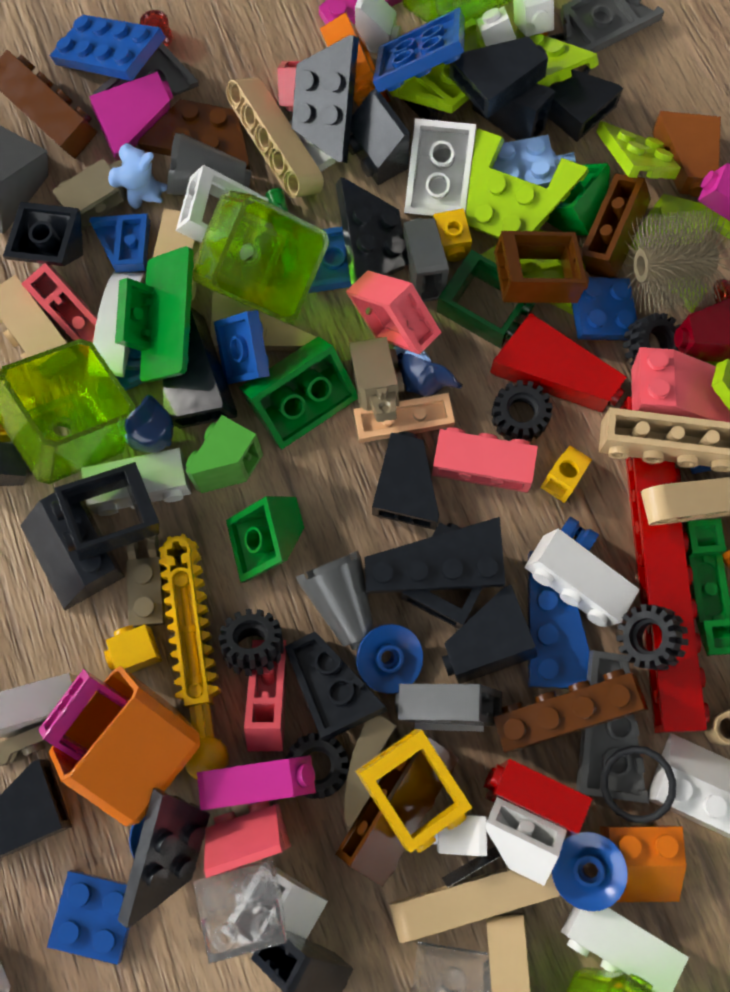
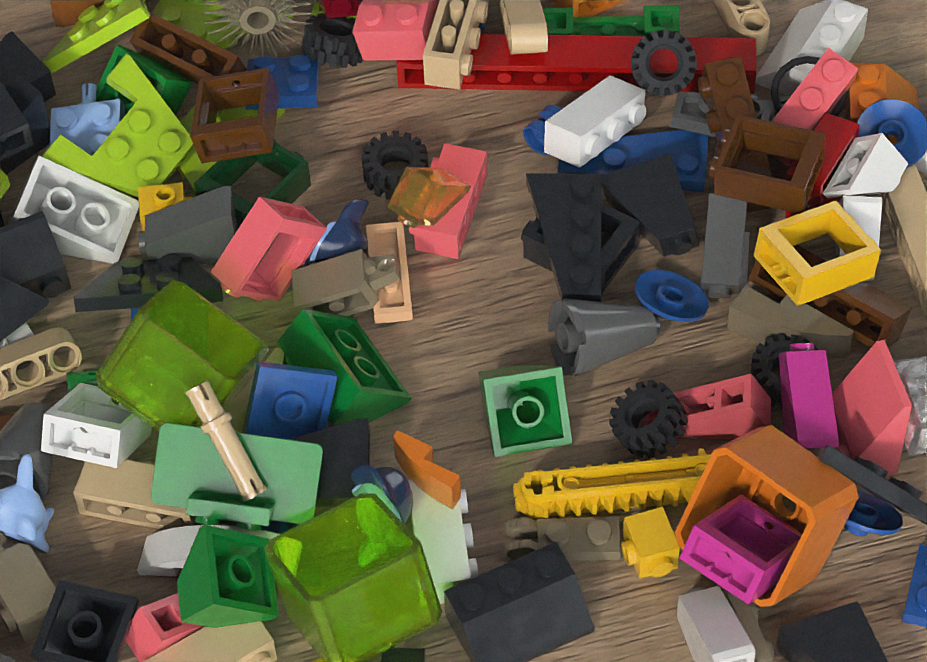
camera: 85 degrees left, 20 degrees down
(65, 315) = (226, 580): none -> green slope
(96, 485) = (497, 499): black window -> none
(124, 240) = (104, 551): blue wing -> none
(174, 453) = (418, 464): none -> orange slope
(181, 284) = (225, 440): none -> tan pin
(224, 457) = (424, 416): bright green slope -> none
(331, 688) = (704, 346): black wing -> none
(406, 484) = (469, 271): black slope -> none
(465, 433) = (426, 195): none -> clear yellow slope
(471, 867) = (893, 246): black sticker -> none
(494, 776) = (775, 140): none -> reddish brown window
(558, 365) = (342, 126): red slope -> none
(566, 473) = (473, 129): yellow leg -> none
(608, 783) = (817, 93): none -> coral brick

